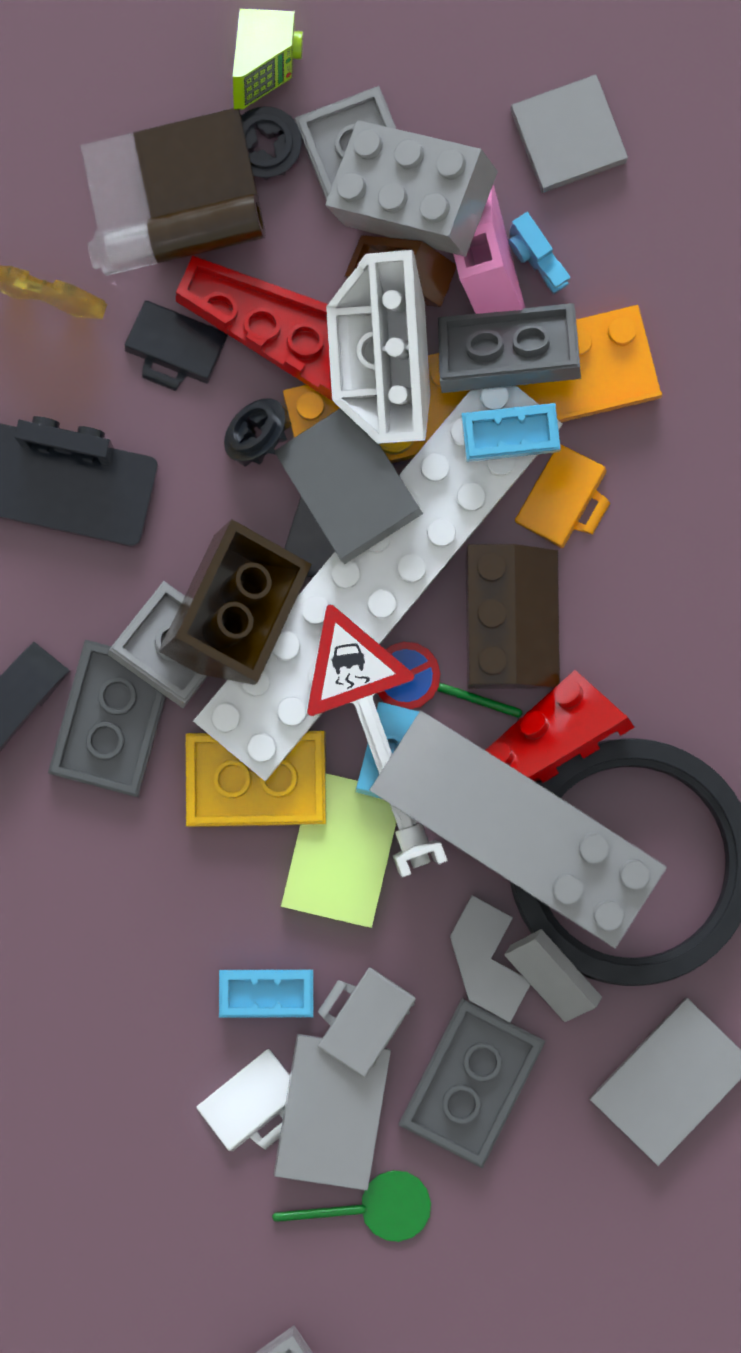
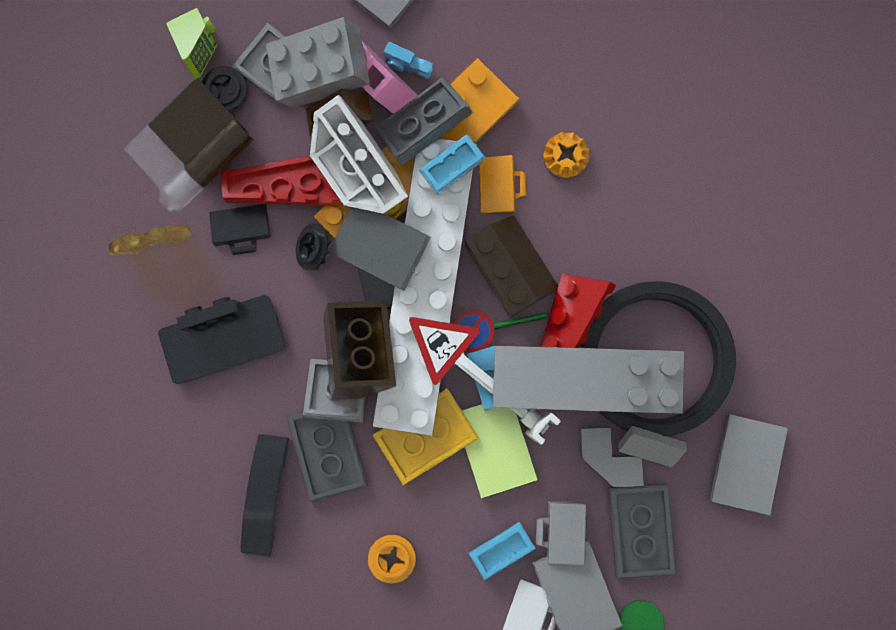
camera: 30 degrees left, 0 degrees up
(90, 913) = (378, 563): none -> light orange gear
(669, 528) = (566, 168): none -> light orange gear

